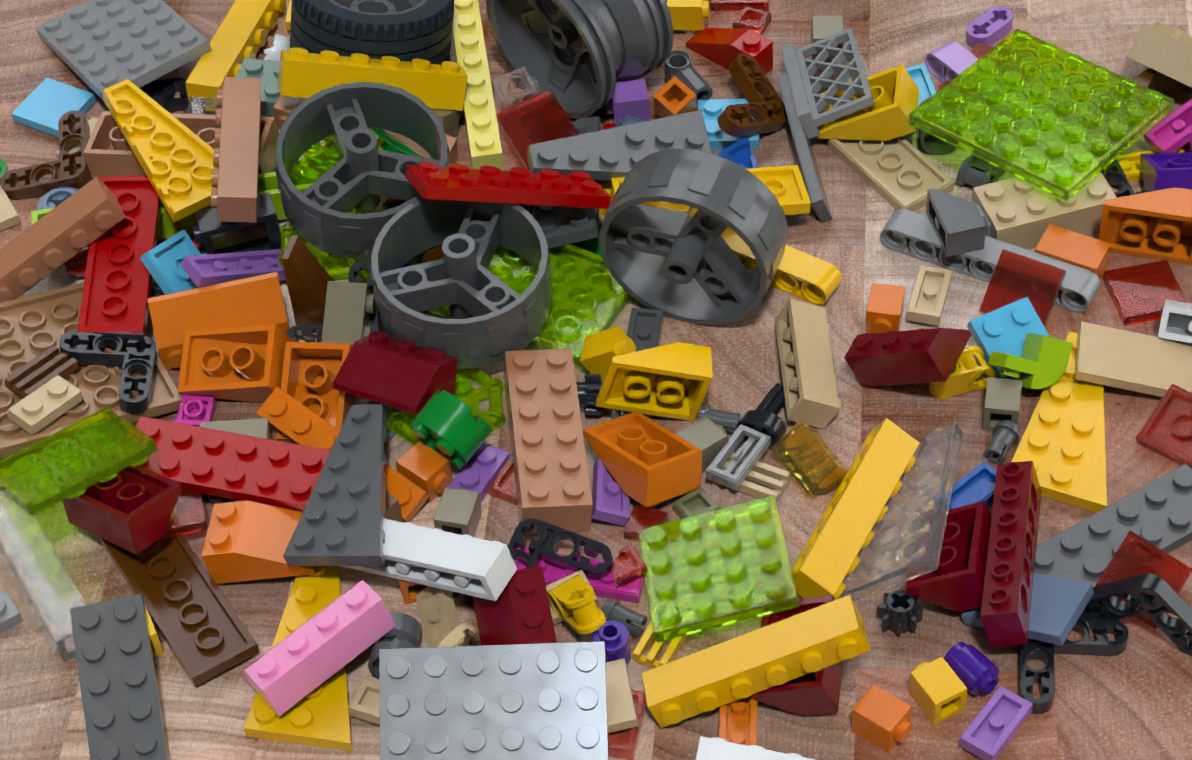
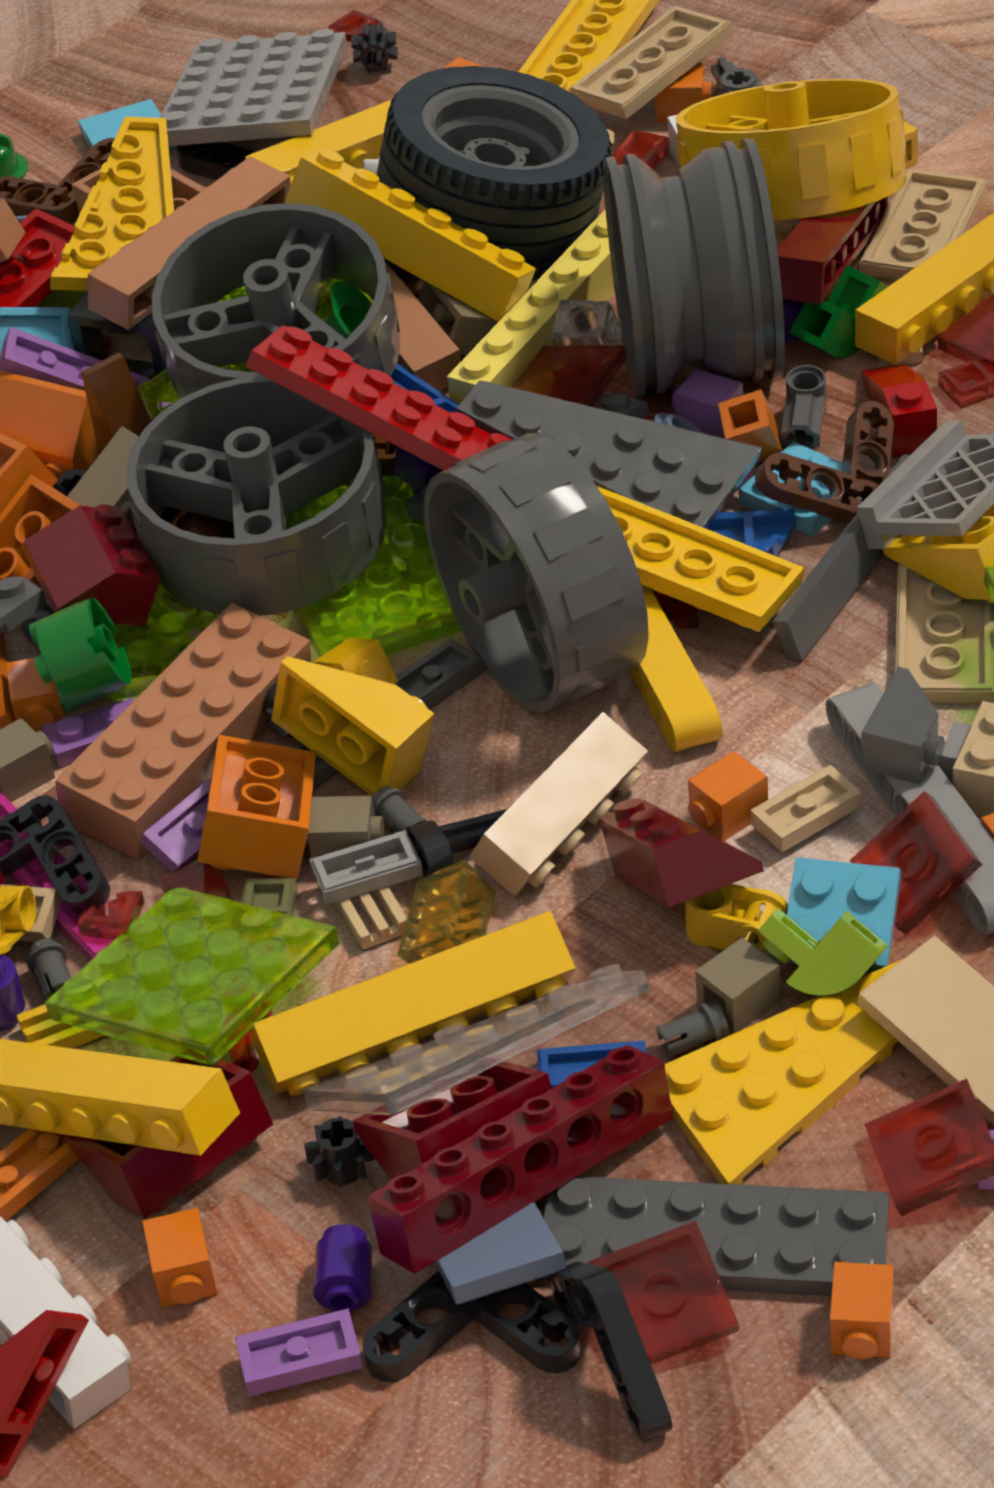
camera: 40 degrees right, 5 degrees down
(937, 690) = (276, 1268): yellow brick -> none

